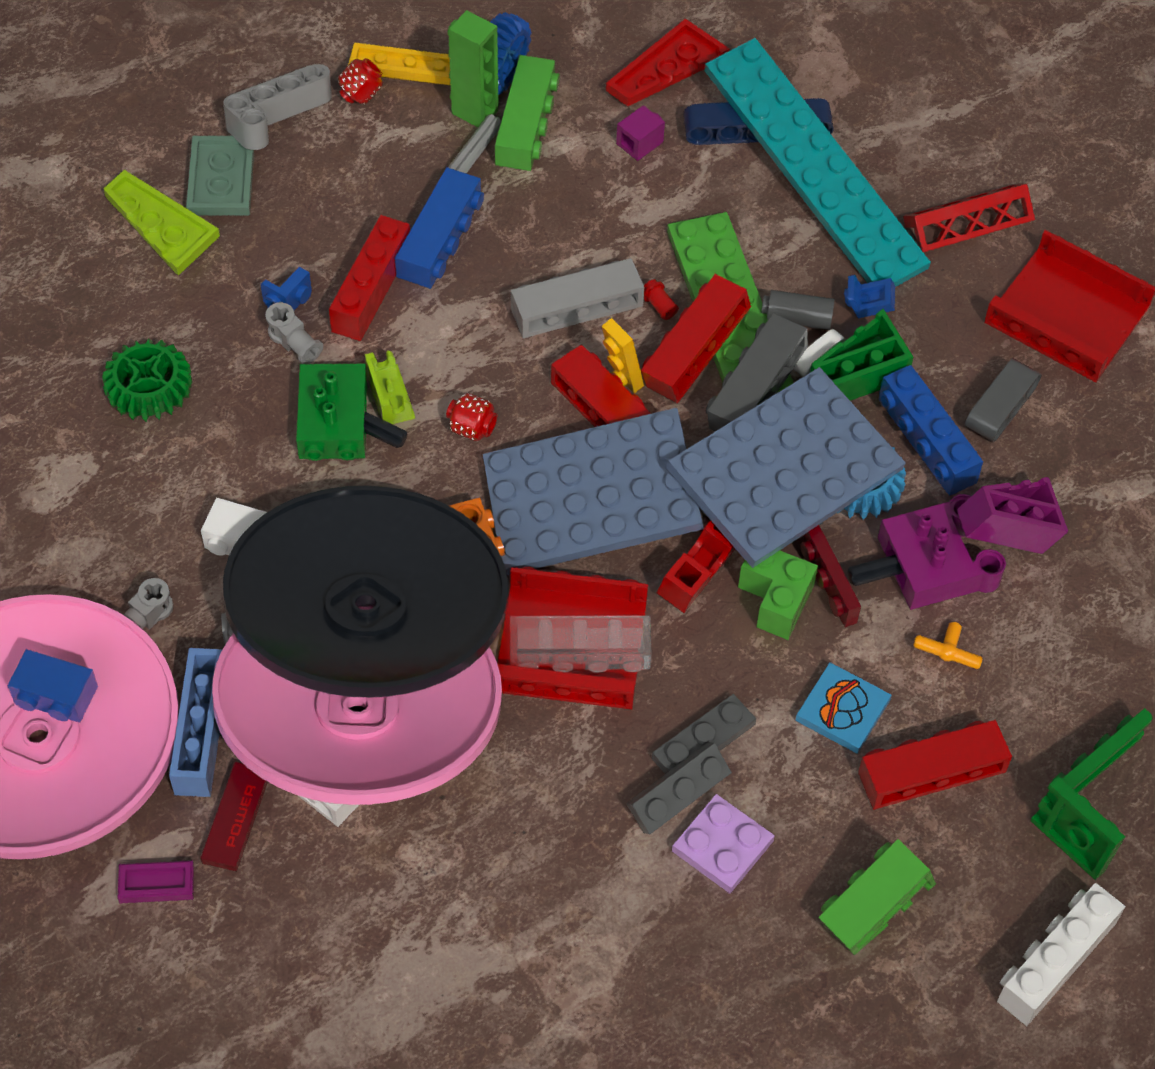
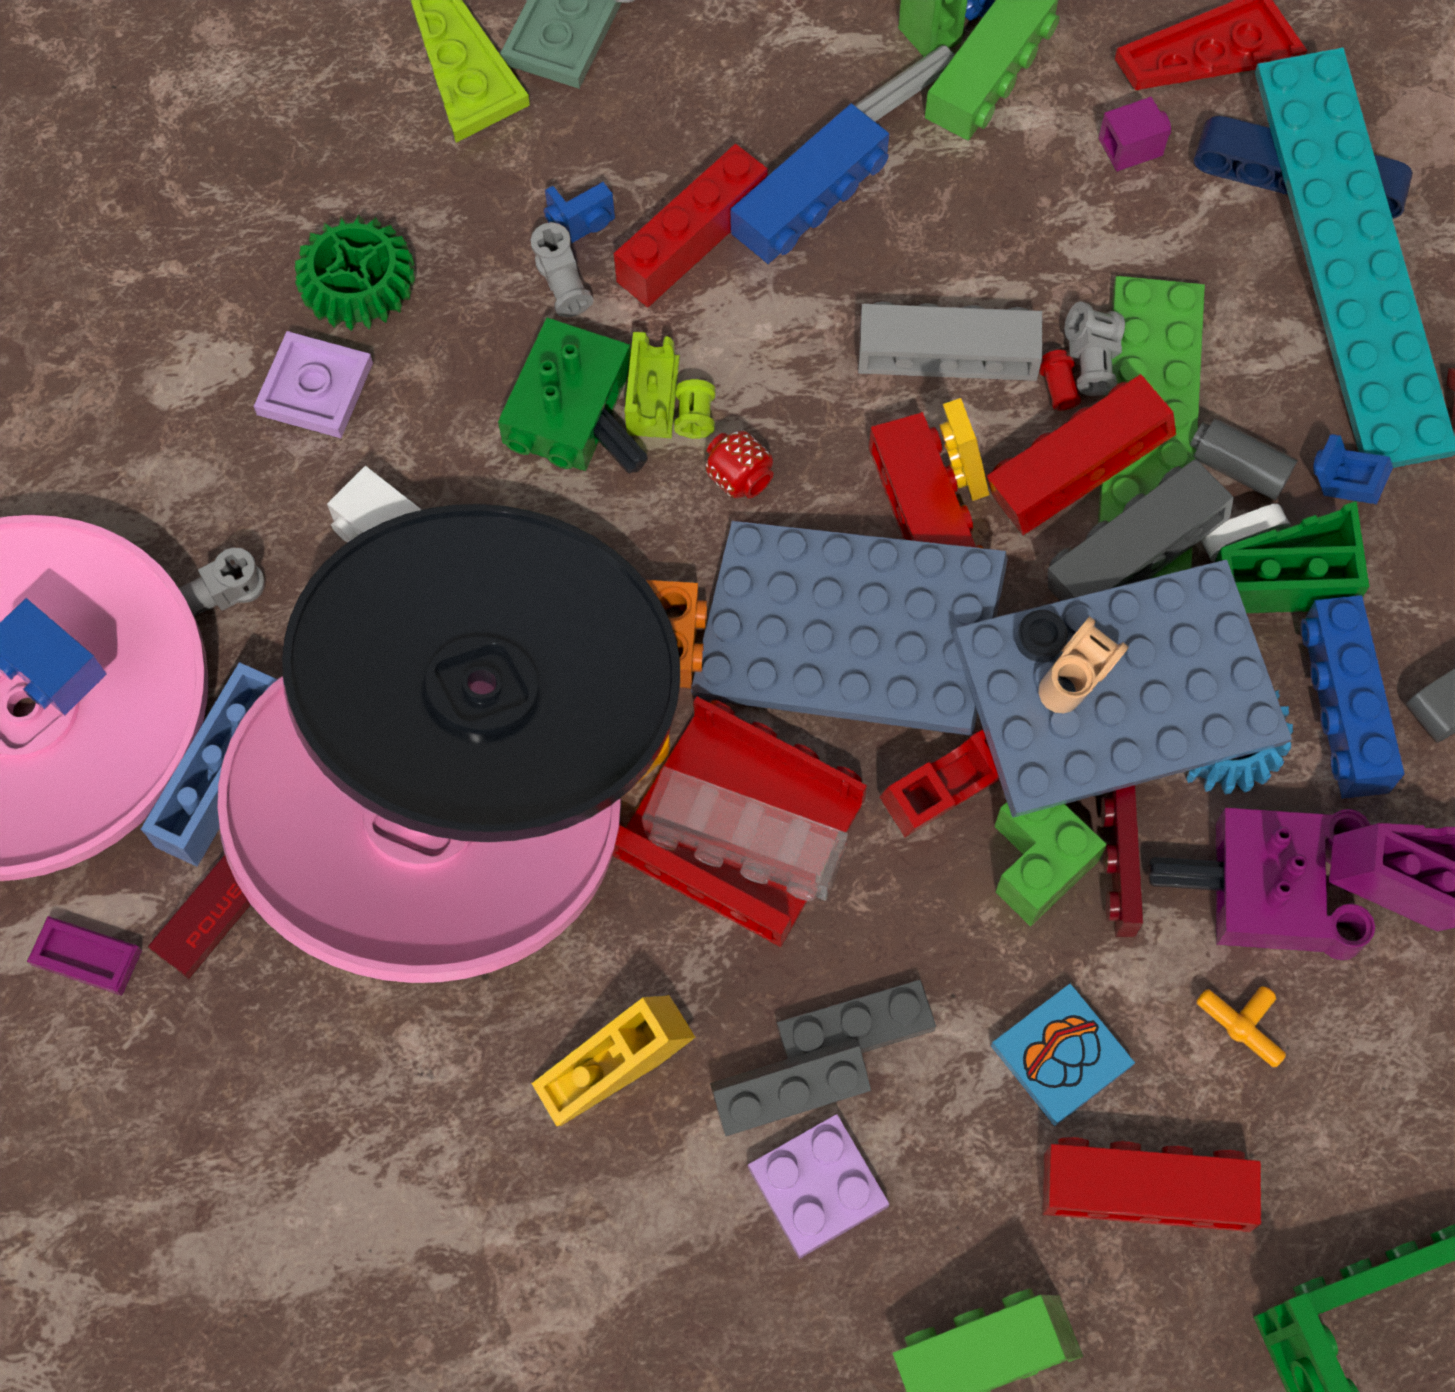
camera: 25 degrees right, 10 degrees up
(150, 461) = (313, 384): none -> lavender plate
(418, 391) = (694, 409): none -> lime bush
(554, 812) = (614, 1057): none -> yellow slope
(673, 267) = (1095, 346): none -> light grey connector
(725, 446) = (1041, 635): none -> black tile
(758, 457) = (1084, 662): none -> light nougat piece

